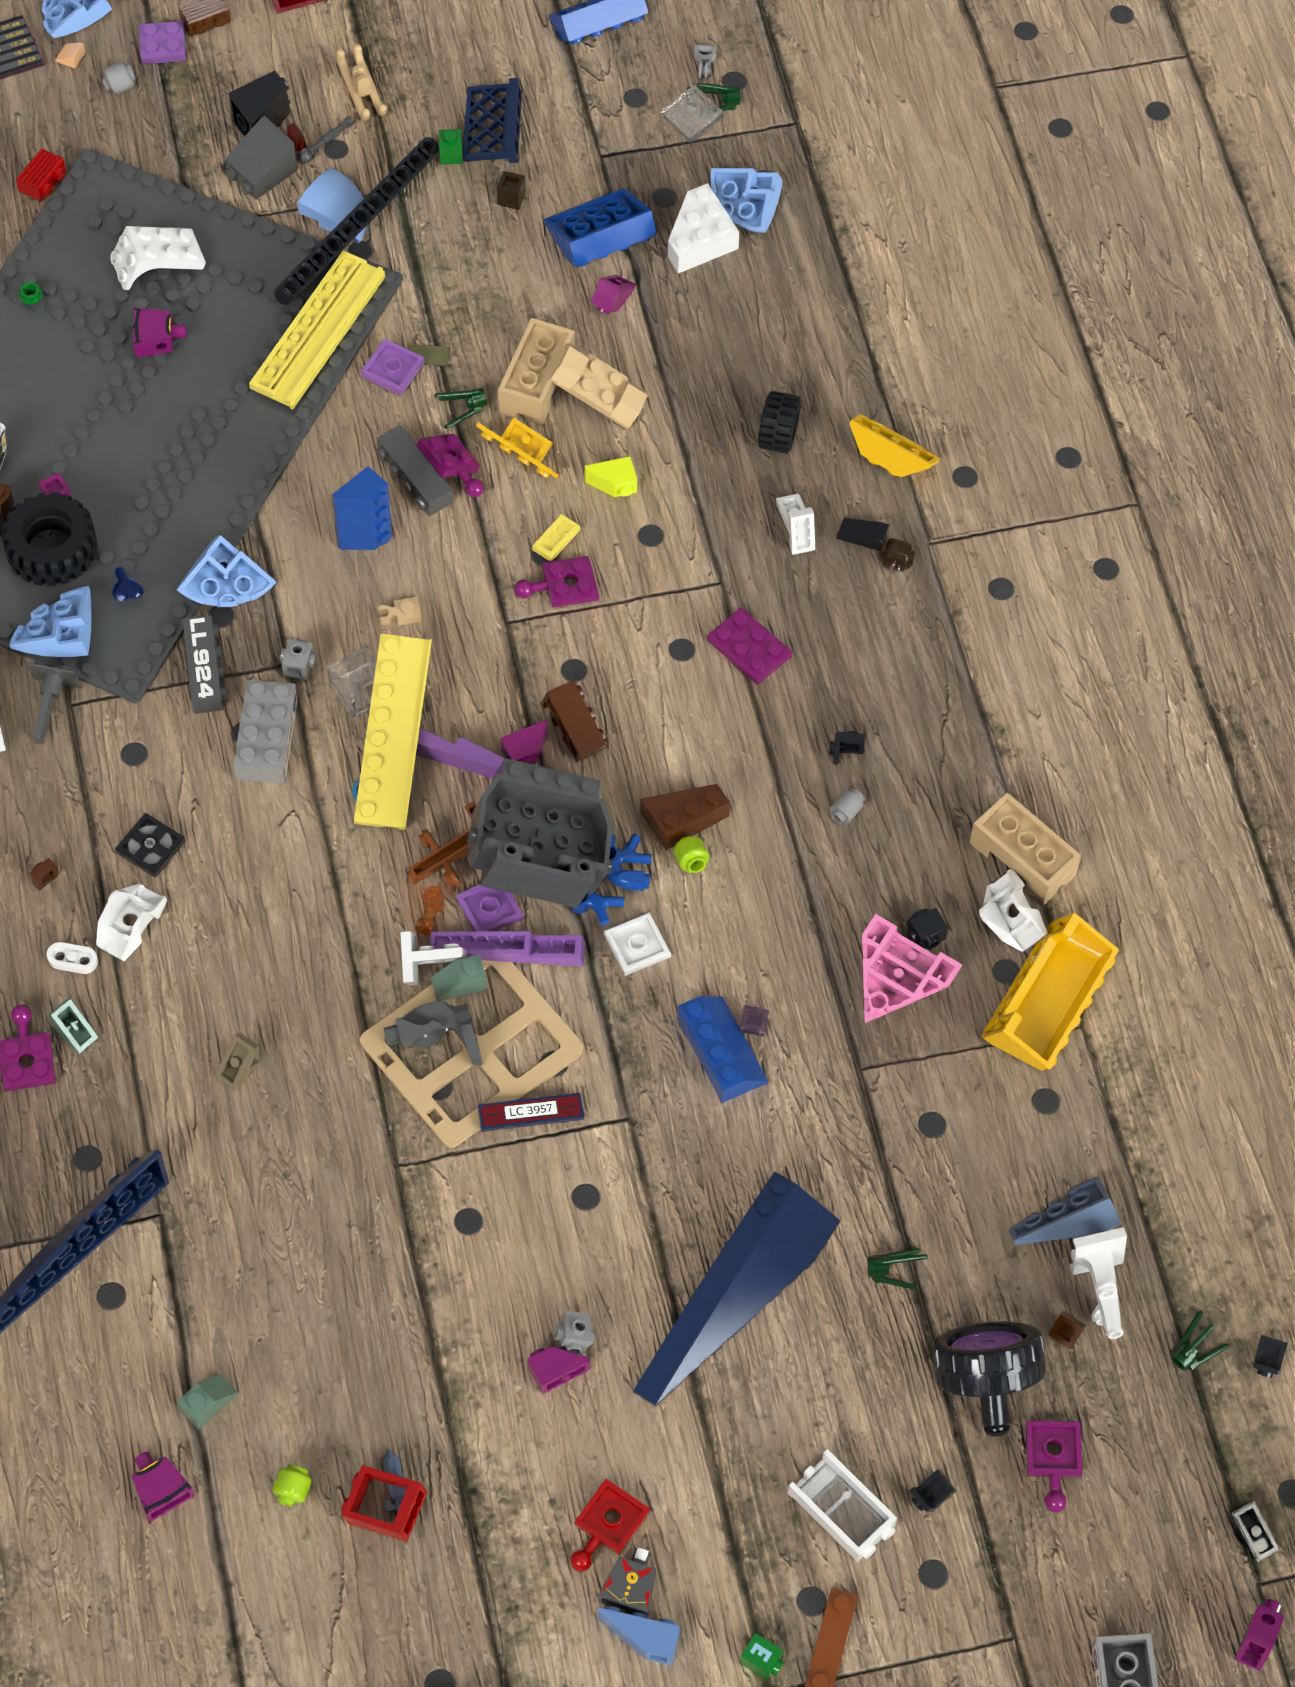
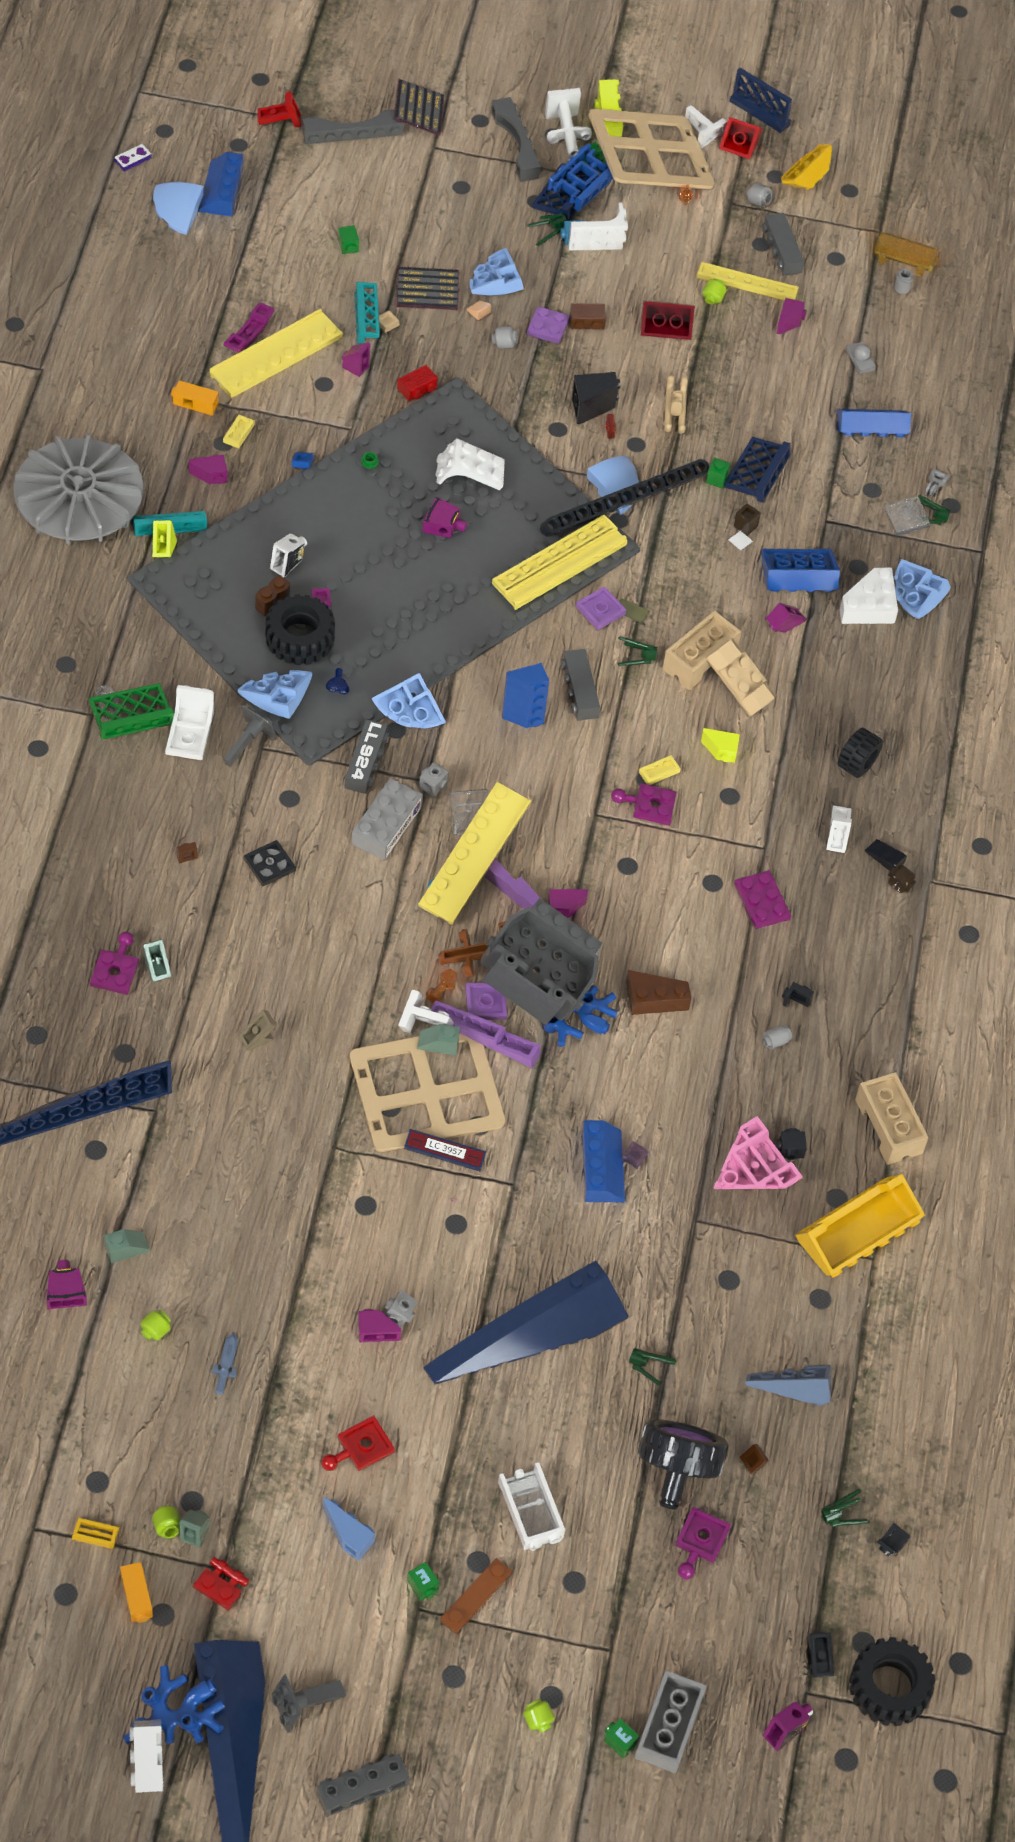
camera: 20 degrees right, 5 degrees down
(73, 957) = (180, 916): white plate -> none
(113, 934) = (215, 912): white piece -> none
(261, 159) = (577, 430): dark grey slope -> none
(307, 152) = (613, 438): dark grey piece -> none
(404, 611) = (526, 777): tan plate -> none
(406, 1514) = (220, 1379): red window -> none
(430, 1023) = (402, 1060): dark grey hips -> none
(452, 459) = (611, 685): magenta plate -> none
(513, 218) = (740, 540): none -> white sticker
(525, 442) = (669, 695): yellow bracket -> none
(575, 720) = (609, 898): reddish brown wedge -> none
(630, 1584) = (355, 1492): dark grey torso -> none
(637, 944) = (578, 1069): white tile -> none
(691, 854) = (647, 1023): lime head -> none
(889, 448) = (933, 802): yellow wedge -> none
(932, 1492) = (600, 1525): black bracket -> none
(1021, 930) = (859, 1174): white piece -> none
(1099, 1256) = (801, 1416): white piece -> none

